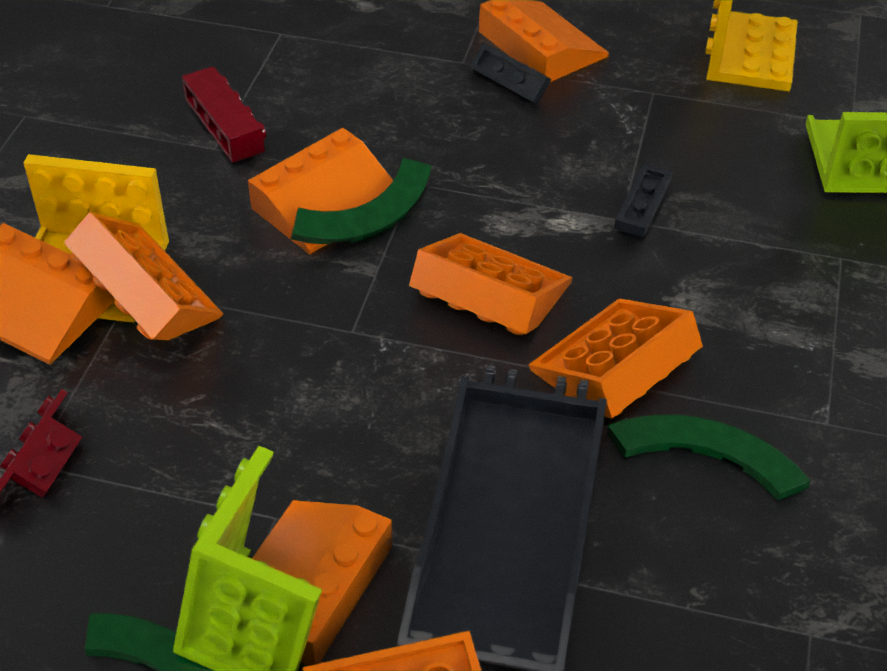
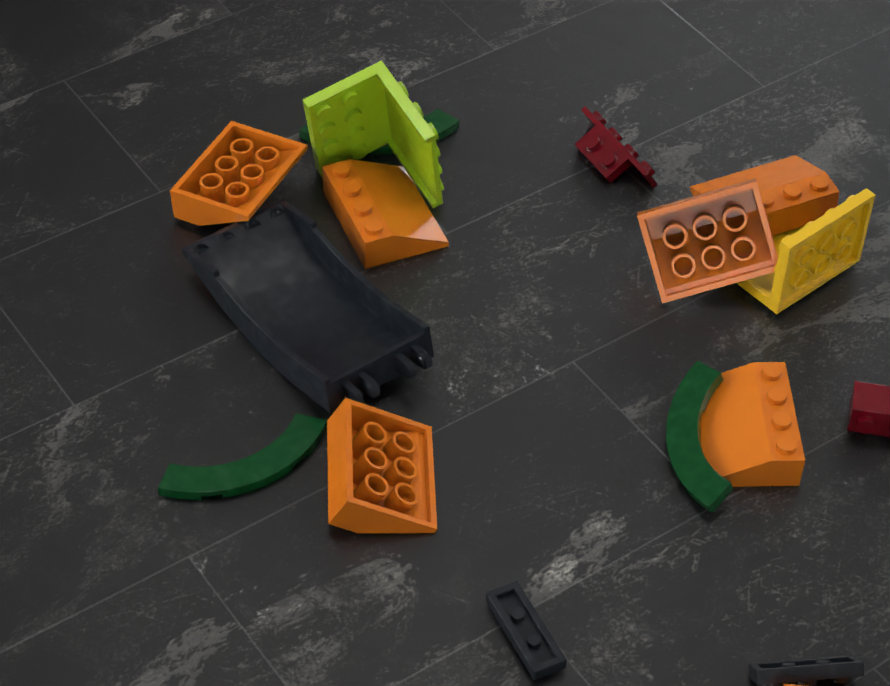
camera: 130 degrees right, 0 degrees up
(488, 282) = (535, 456): orange slope -> none

